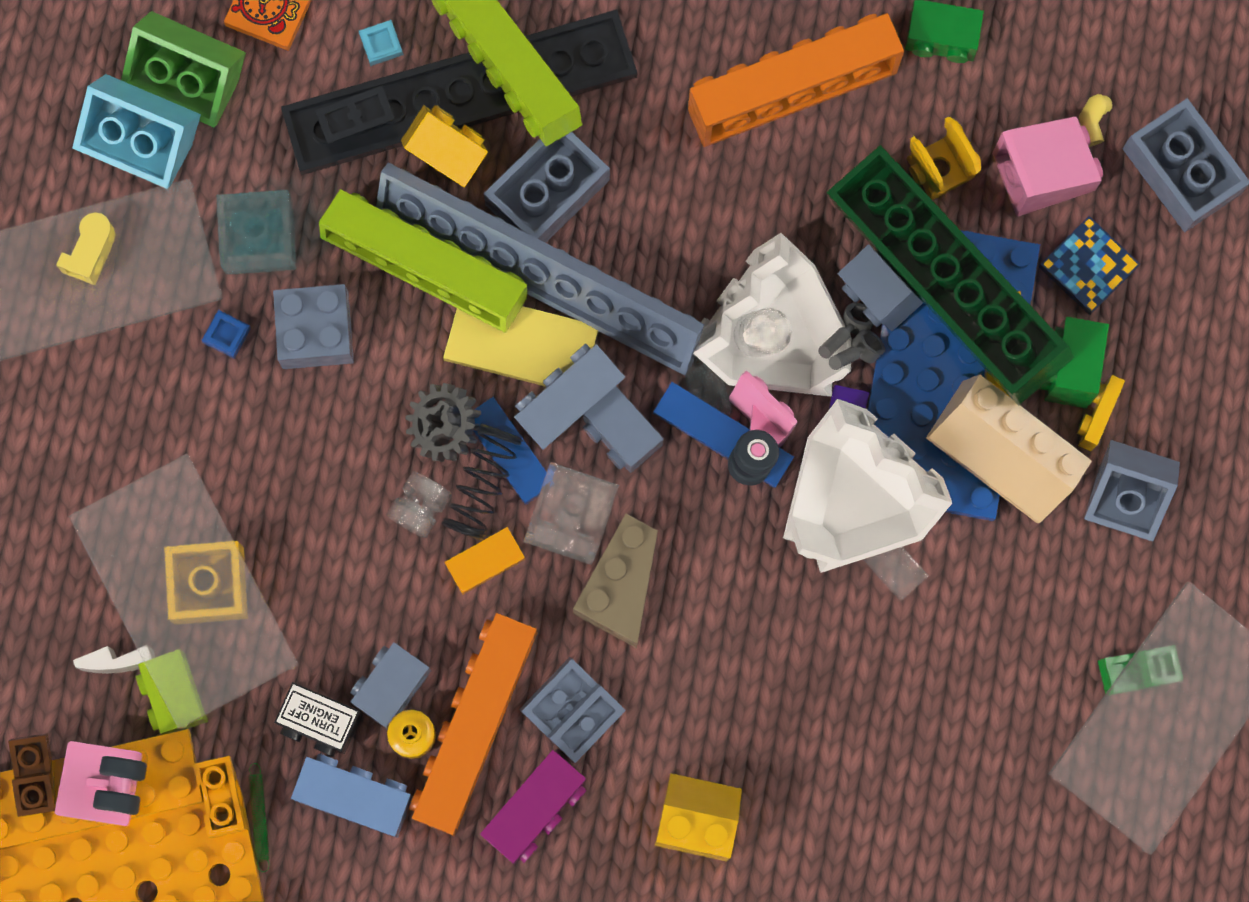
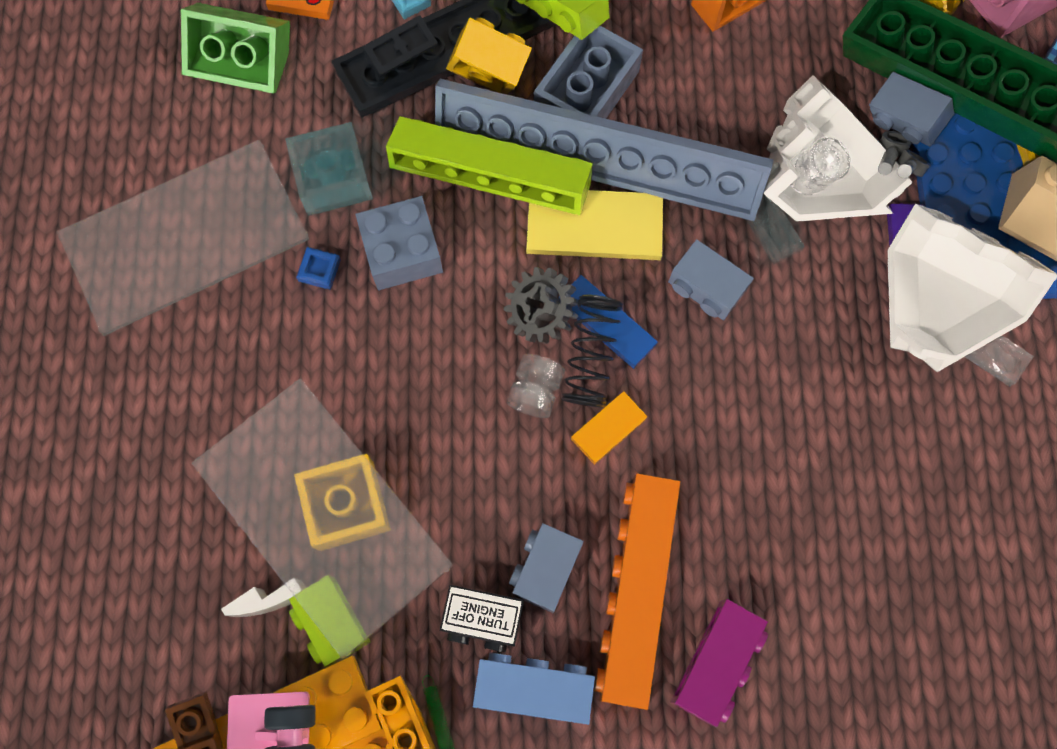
camera: 10 degrees left, 5 degrees down
(90, 250) = (175, 214): light yellow leg -> none
(135, 130) = (200, 105): medium azure slope -> none
(423, 740) = (570, 623): yellow head -> none
(568, 395) = (657, 252): sand blue brick -> none
(571, 513) = (683, 366): clear slope -> none
(572, 710) = (729, 555): sand blue slope -> none
(620, 582) = (747, 421): dark tan wedge -> none
(699, 817) = (893, 639): yellow slope -> none
(710, 426) = (803, 267): blue tile -> none
(769, 429) = (845, 241): plate -> none

